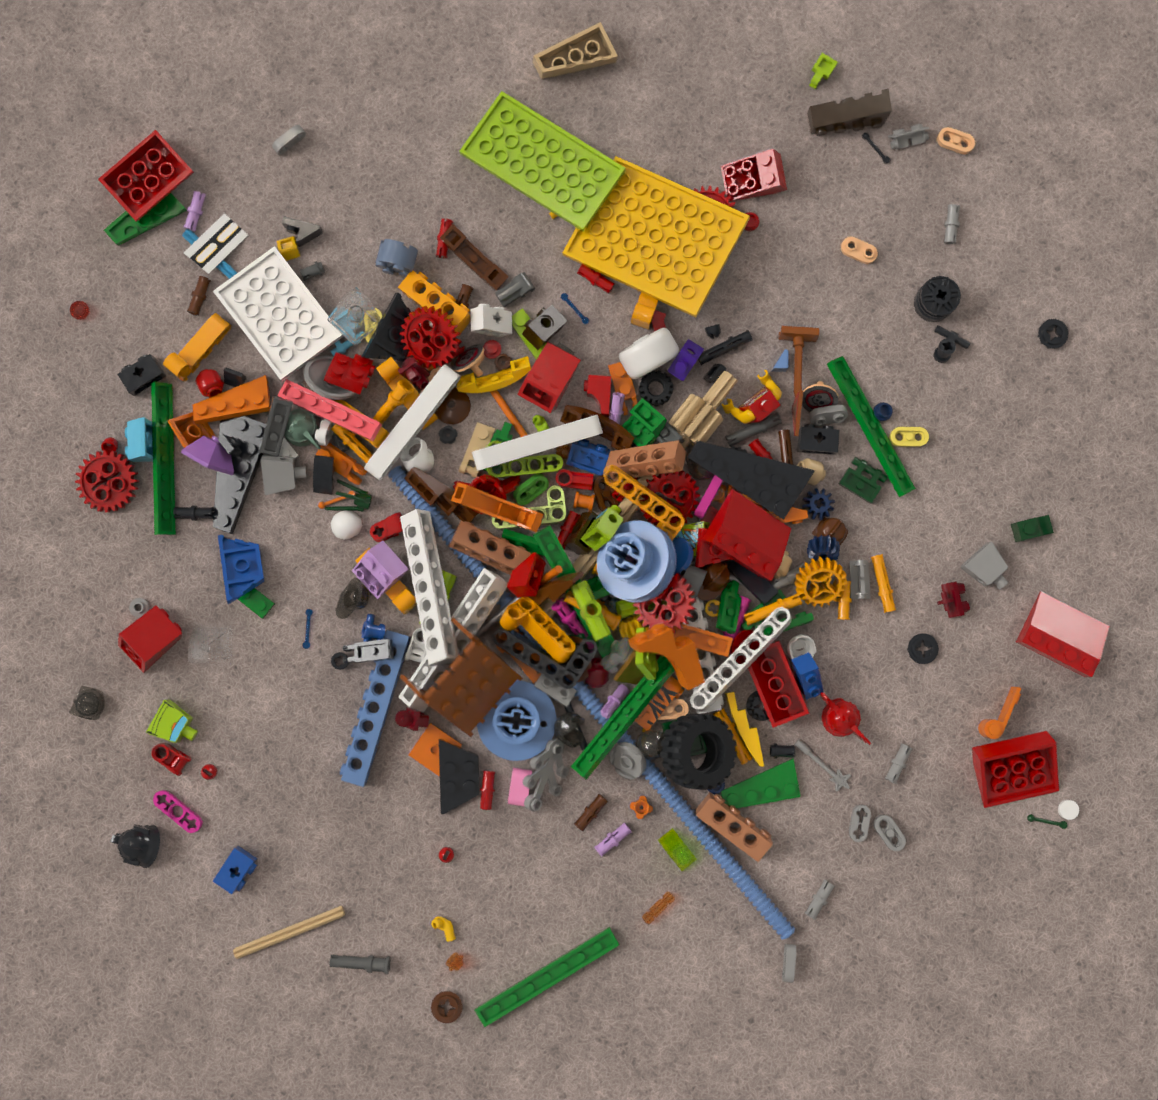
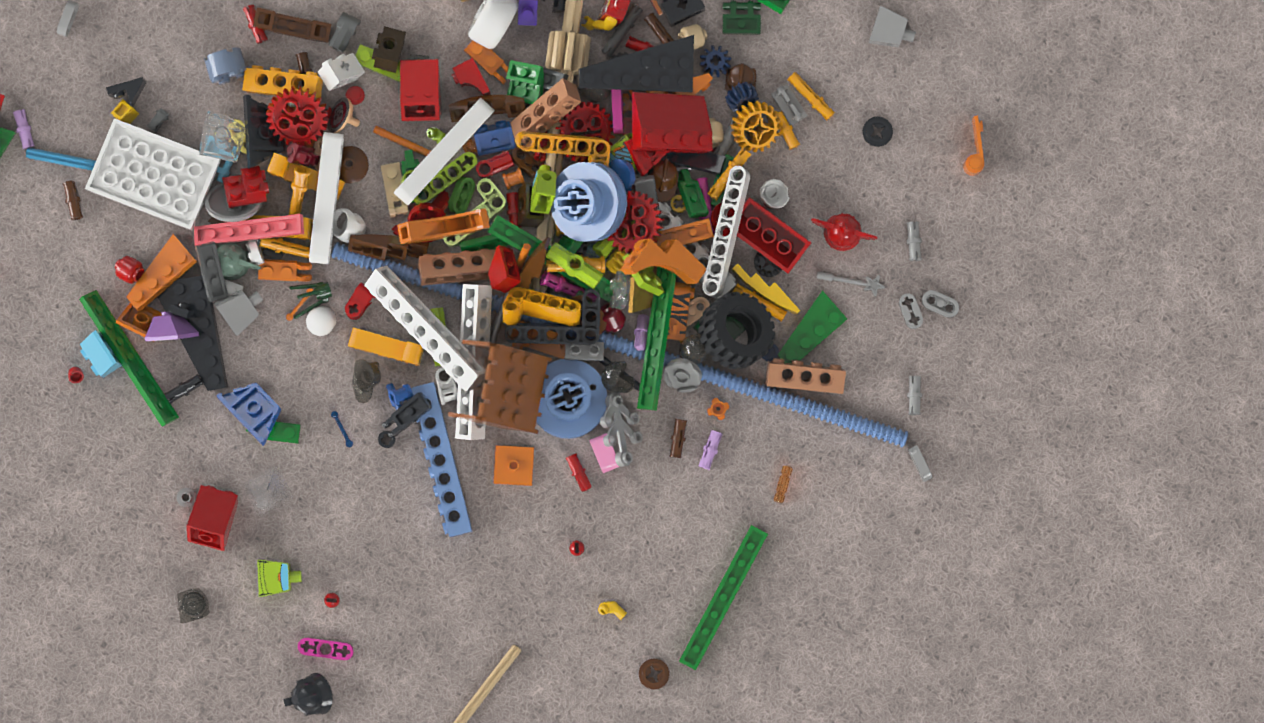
camera: 25 degrees left, 0 degrees up
(115, 496) = (77, 397): red gear -> none
(151, 373) = (72, 289): black brick -> none
(171, 759) = (294, 607): red piece -> none
(198, 347) = (100, 244): light orange beam -> none
(216, 243) = (60, 146): sticker -> none
(227, 879) = (400, 657): blue brick -> none
(233, 377) = (146, 253): black slope -> none
(323, 474) = (276, 289): black slope -> none
(365, 963) = (566, 677): dark grey pin -> none
(379, 569) = (374, 339): lavender slope -> none
(411, 719) = (478, 449): dark red hips -> none
(453, 434) = (356, 191): black plate -> none
(455, 962) = (638, 632): clear orange plate -> none
(457, 776) = (546, 476): black wing -> none
(496, 380) = (376, 119): yellow slope -> none
(498, 362) = (372, 96): reddish brown plate -> none
(585, 320) = (390, 12): clear blue hinge -> none
(616, 407) = (493, 81): lavender axle -> none
(656, 377) = (517, 33): black tyre -> none
(677, 849) = (769, 426): clear neon green slope -> none
(782, 751) = (809, 289): black pin -> none
(801, 619) = (759, 168): green hinge -> none
(807, 675) = (791, 212): blue brick -> none
(952, 600) = (877, 75): dark red hips -> none
(1016, 768) = (1015, 186): red slope -> none
(1062, 824) = (1083, 210): dark green hinge -> none
(1064, 635) = (990, 48): slope -> none
(1068, 809) = (1080, 194): white tile -> none

